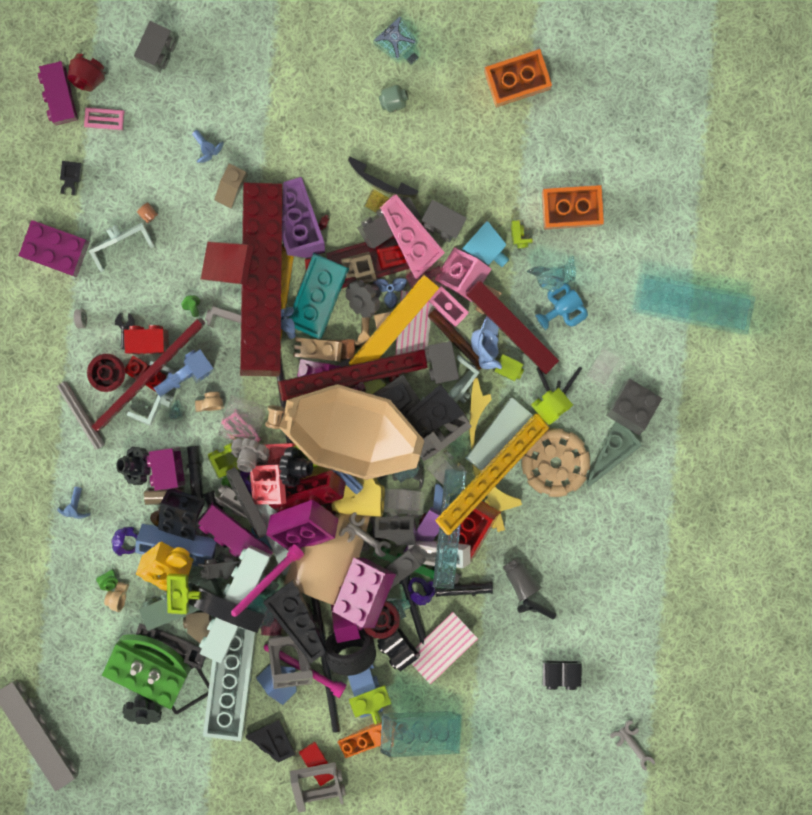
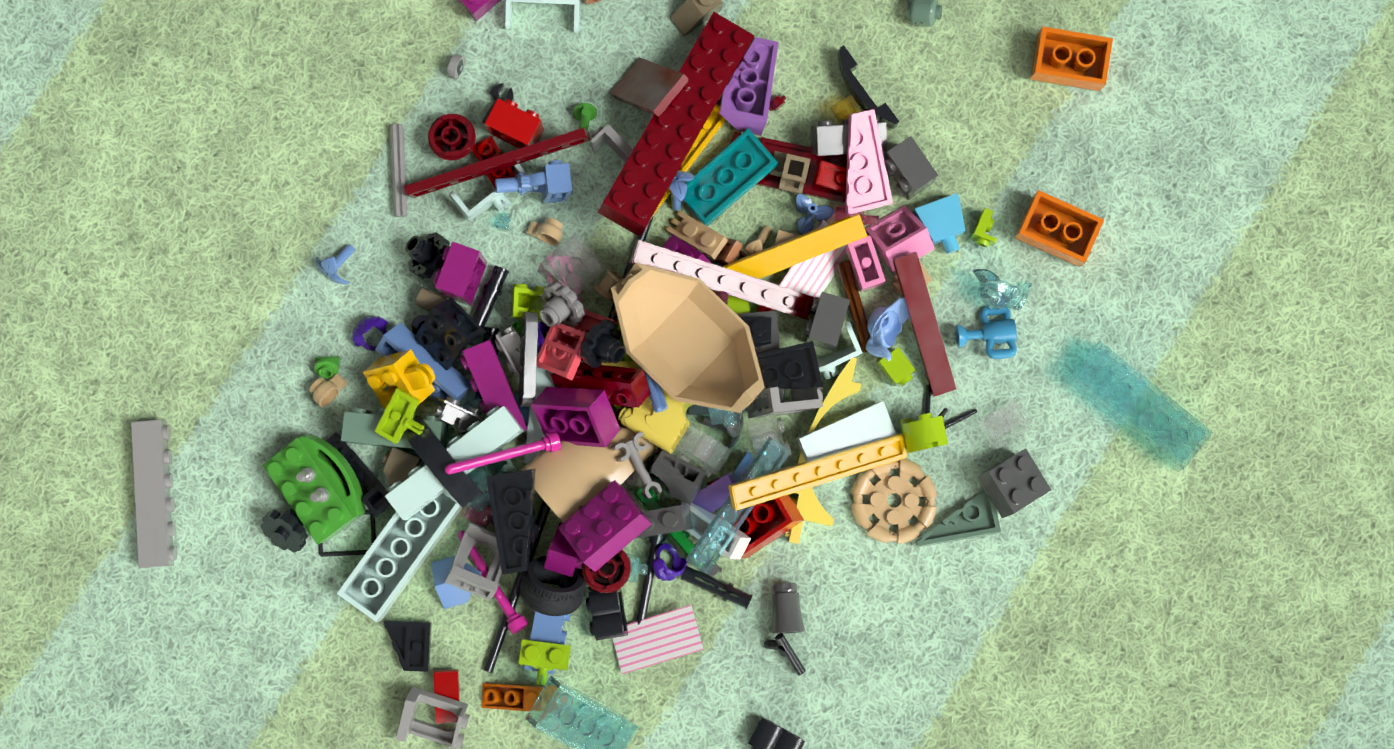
camera: 25 degrees right, 5 degrees down
(363, 298) = (777, 205): dark grey plant -> none

